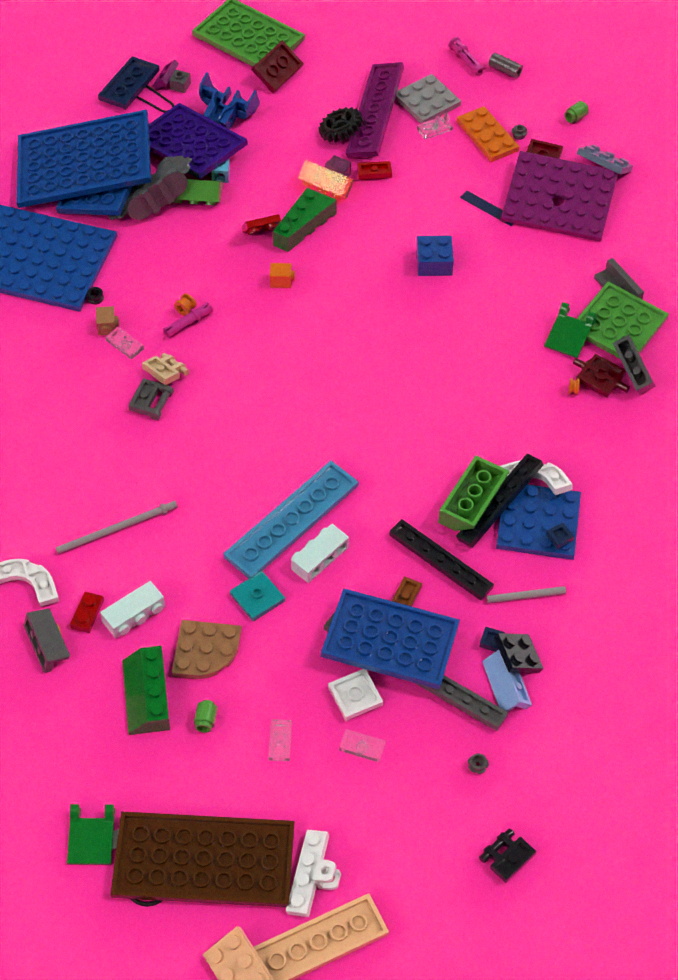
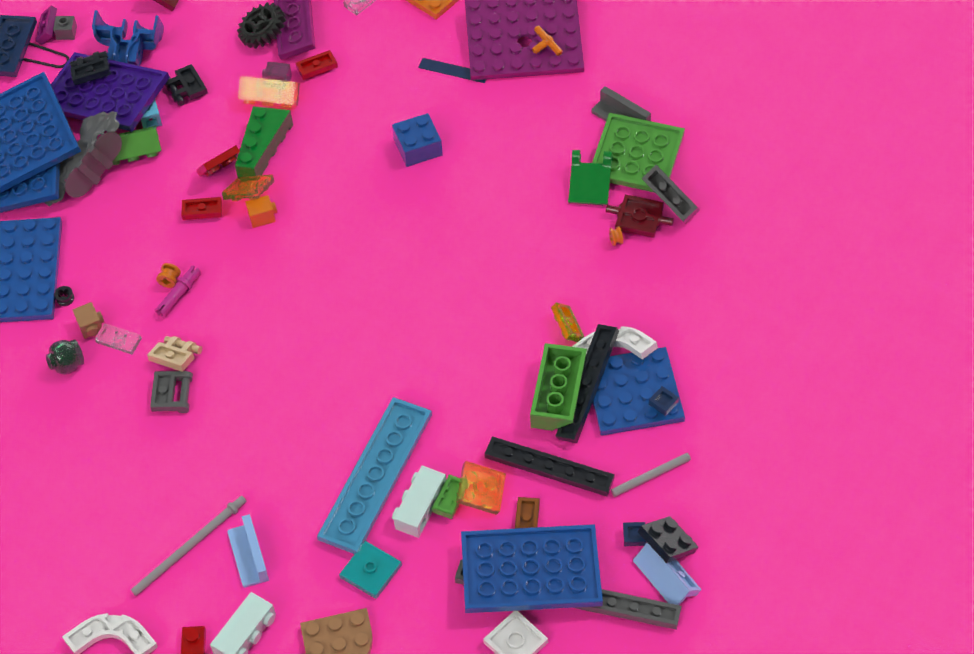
camera: 15 degrees left, 0 degrees up
(75, 343) = (64, 356): none -> piece
(162, 549) = (248, 553): none -> light blue panel
(186, 118) = (90, 68): none -> black plate
(233, 258) = (201, 208): none -> red plate
(264, 158) = (191, 83): none -> black plate
(277, 252) = (248, 187): none -> plate
(347, 557) = (446, 501): none -> bright green plate
(375, 558) = (481, 487): none -> plate
(503, 444) = (567, 322): none -> plate
(577, 205) = (547, 40): none -> orange piece

